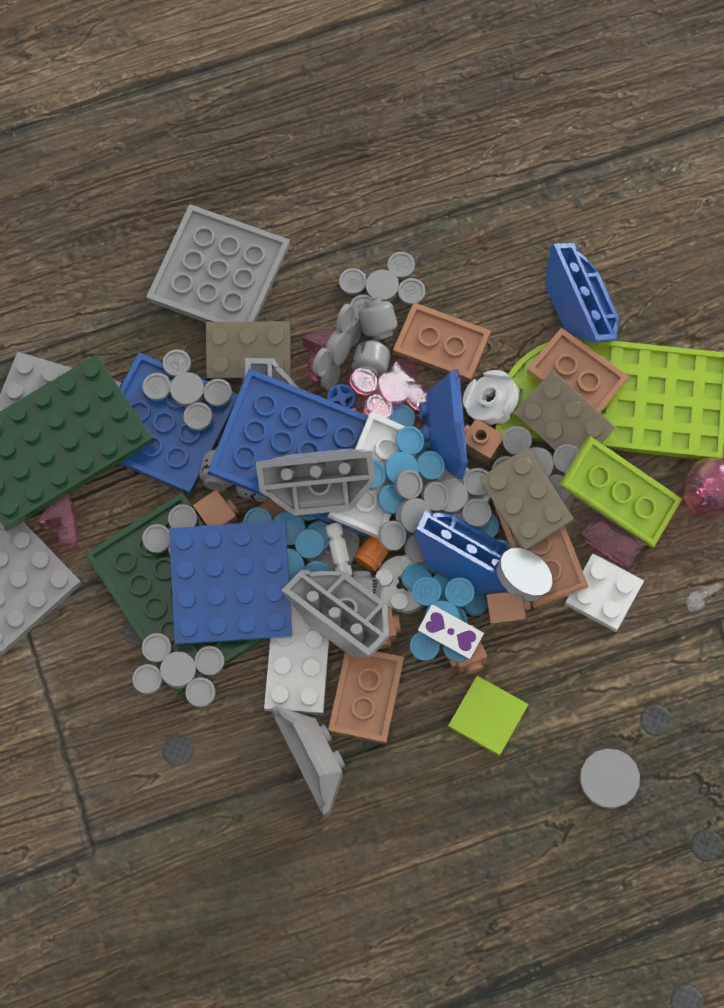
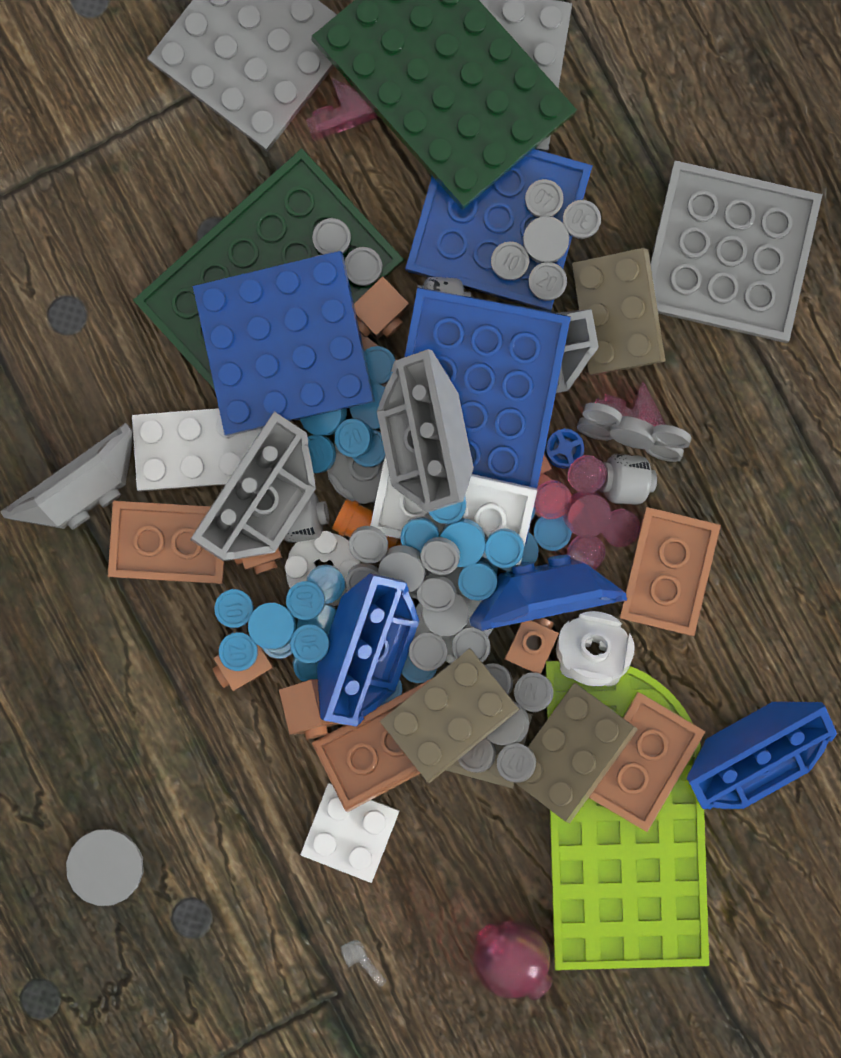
camera: 80 degrees right, 15 degrees up
(178, 670) = (161, 297): light grey piece -> none
(338, 548) = (349, 478): white axle -> none
(377, 318) = (687, 479): light grey head -> none
(384, 283) = (742, 478): light grey piece -> none
(450, 632) = (251, 639): white tile -> none
(488, 716) = (164, 702): lime tile -> none
(524, 574) = (342, 725): tile -> none
(612, 540) = (422, 835): clear pink plate -> none
(620, 492) = (483, 838): lime tile -> none

